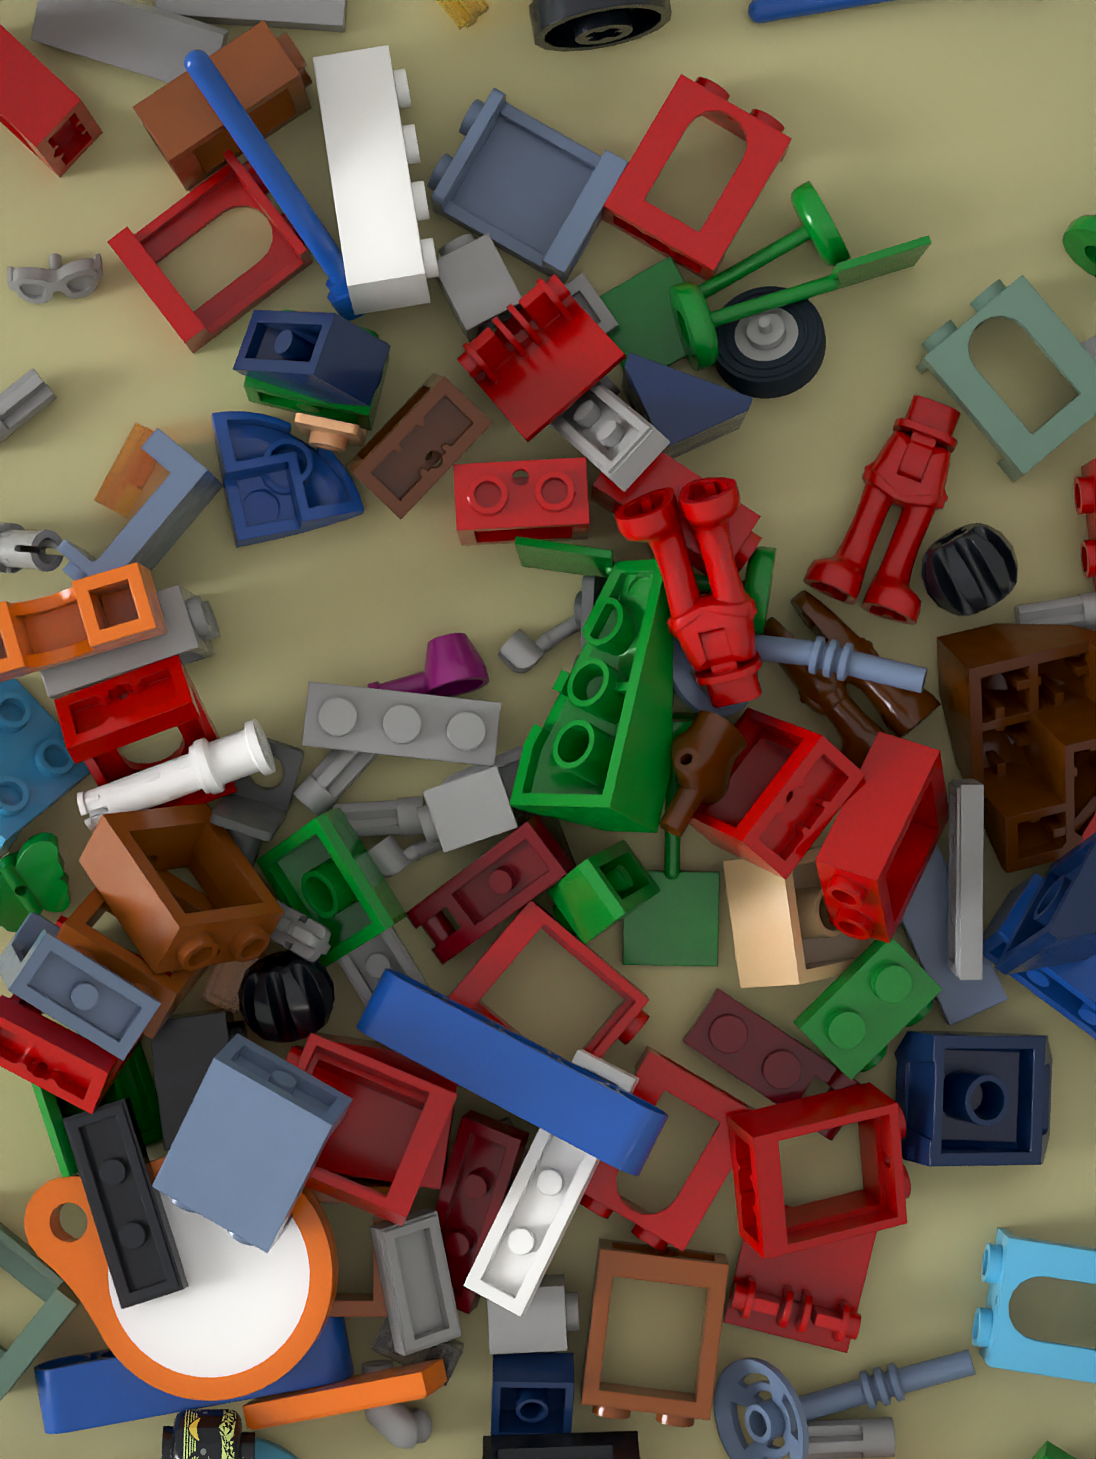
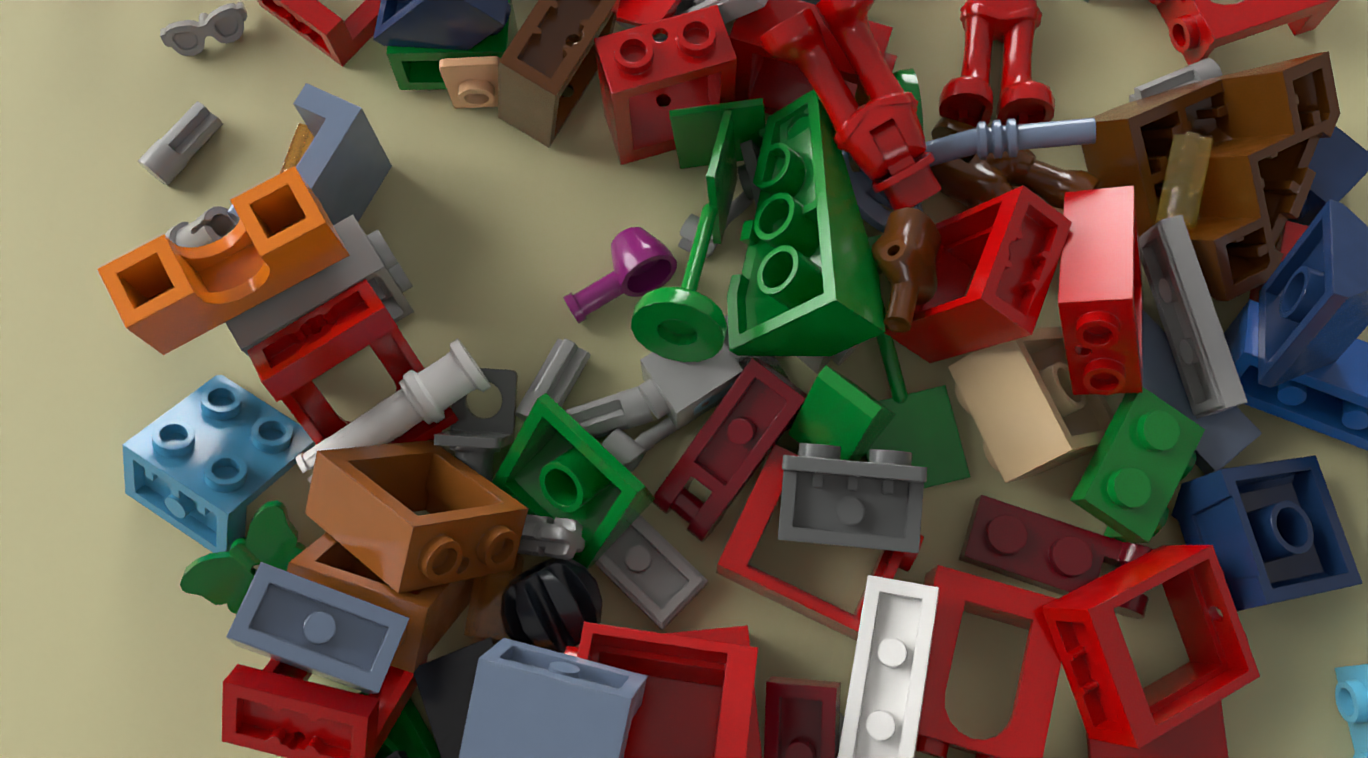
camera: 15 degrees left, 15 degrees down
(277, 481) = (438, 146): blue brick -> none
(401, 724) = (577, 317): light grey plate -> none
(466, 775) = (680, 320): none -> green piece
(512, 1072) = (814, 611): blue beam -> none
(581, 978) = (852, 501): none -> dark grey bracket
(969, 569) = (1085, 60): black piece -> none
(1010, 740) = (1185, 178): none -> clear yellow piece

